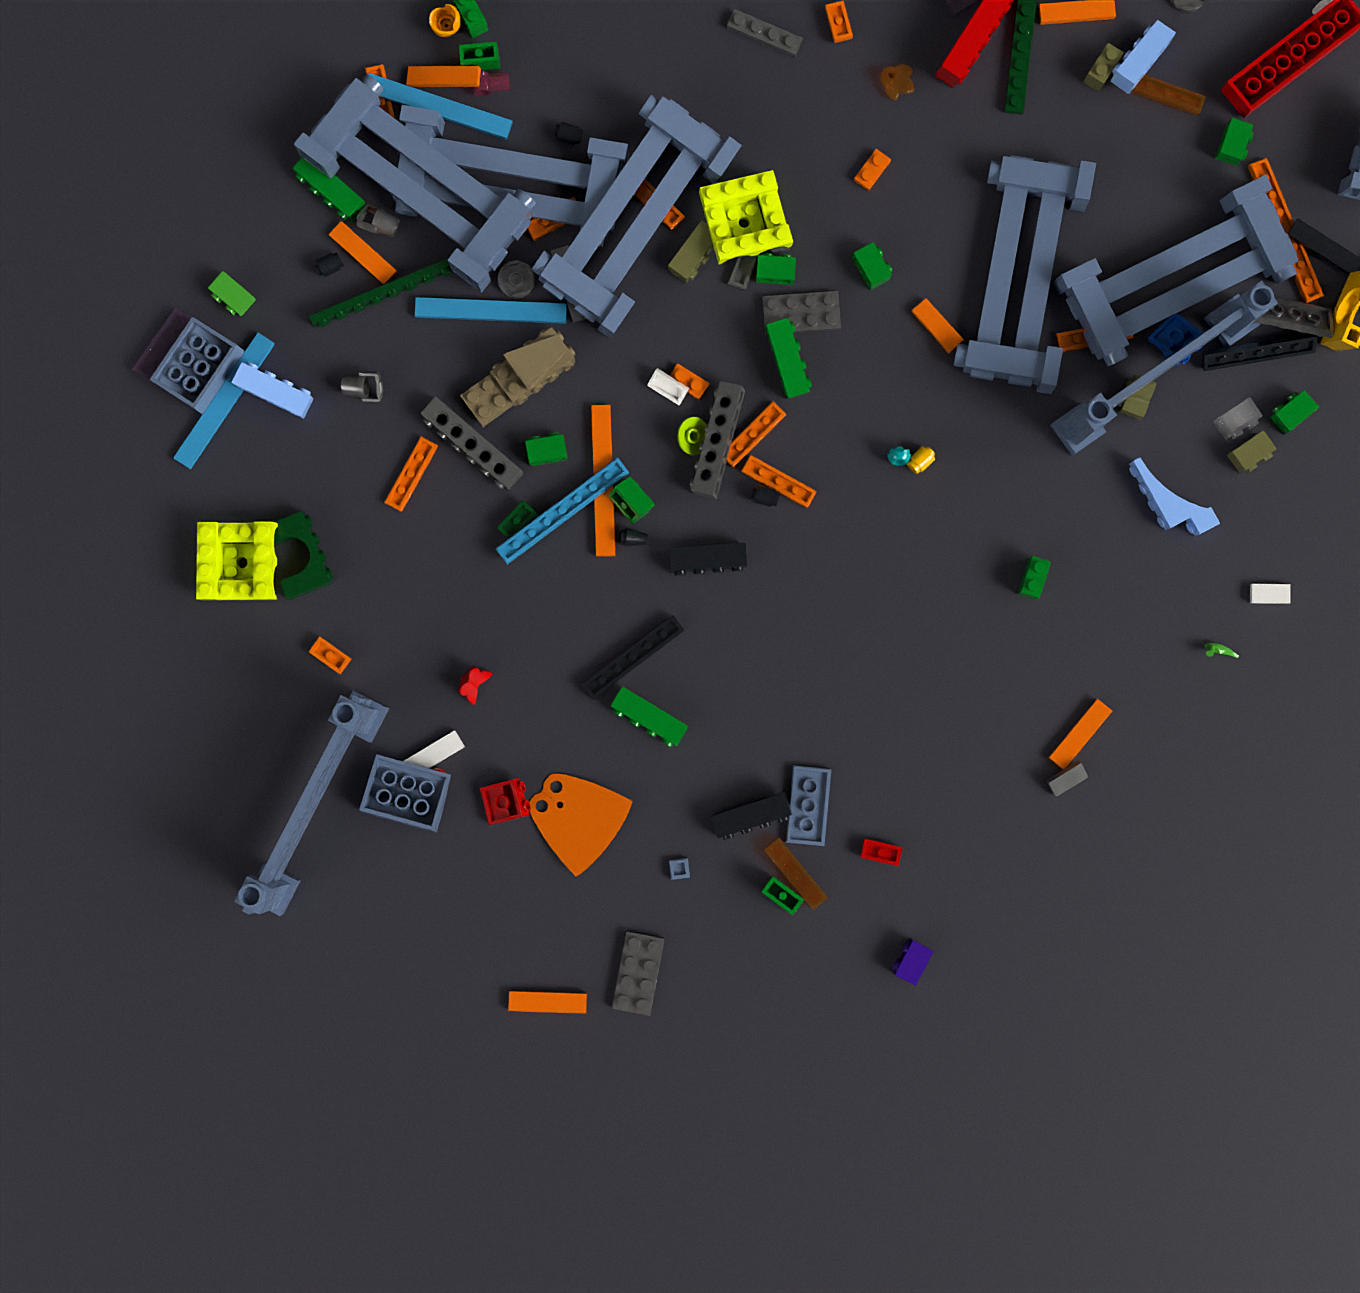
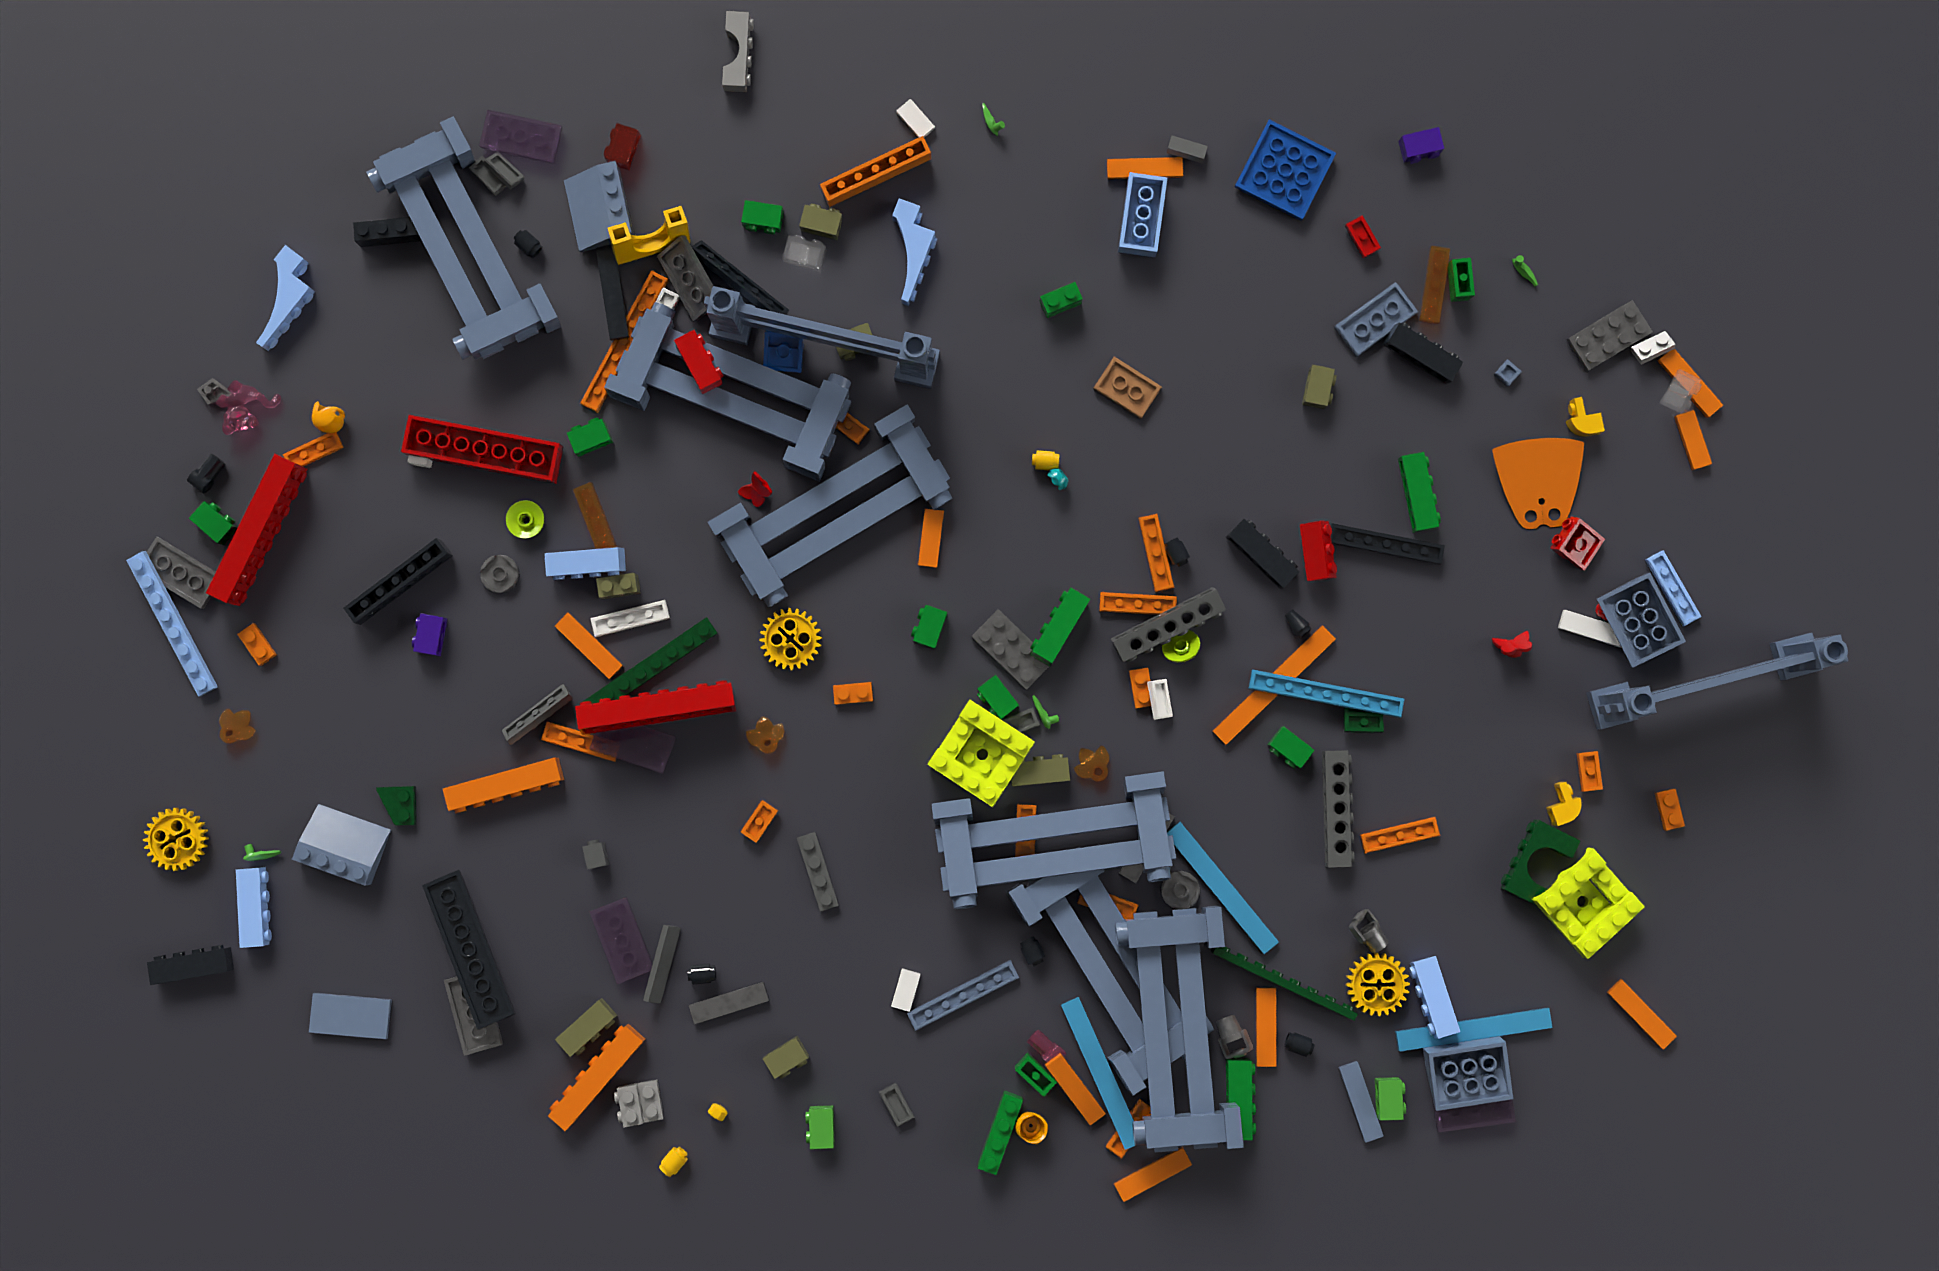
camera: 135 degrees left, 0 degrees up
(122, 532) = (1641, 1014): none -> orange tile
(248, 273) = (1361, 1101): none -> sand blue tile
(248, 690) = (1669, 809): none -> orange plate
(306, 348) = (1377, 1001): none -> yellow gear
(318, 610) = (1568, 807): none -> yellow brick
(333, 78) = (1152, 1174): none -> orange tile
(406, 844) = (1673, 588): none -> light blue tile
(502, 963) = (1693, 440): none -> orange tile
(520, 375) = (1254, 818): dark tan wedge -> none
(547, 984) = (1680, 391): none -> clear brick
(582, 58) = (962, 995): none -> sand blue tile
(588, 888) = (1583, 424): none -> yellow brick
(599, 997) = (1653, 347): none -> plate
(623, 21) = (905, 990): none -> white tile
(631, 500) = (1271, 648): green brick -> none
(667, 297) = (1091, 761): none -> clear orange plate
(673, 599) = (1318, 550): none -> red brick
(734, 293) = (1043, 714): none -> bright green bar
(745, 954) = (1524, 270): none -> bright green bar
(795, 713) = (1318, 387): none -> olive brick
(922, 571) = (1127, 387): none -> medium nougat tile
(955, 174) = (802, 626): none -> yellow gear
(985, 839) = (1285, 170): none -> blue plate
(1046, 697) = (1142, 214): none -> light blue brick
(1071, 58) = (630, 618): none -> white tile
(1087, 228) = (756, 490): none -> red animal
(1218, 37) = (516, 515): none -> lime dish
(1224, 263) = (699, 361): none -> red brick
(1256, 525) = (876, 171): none -> orange brick
(1290, 288) = (668, 298): none -> white tile

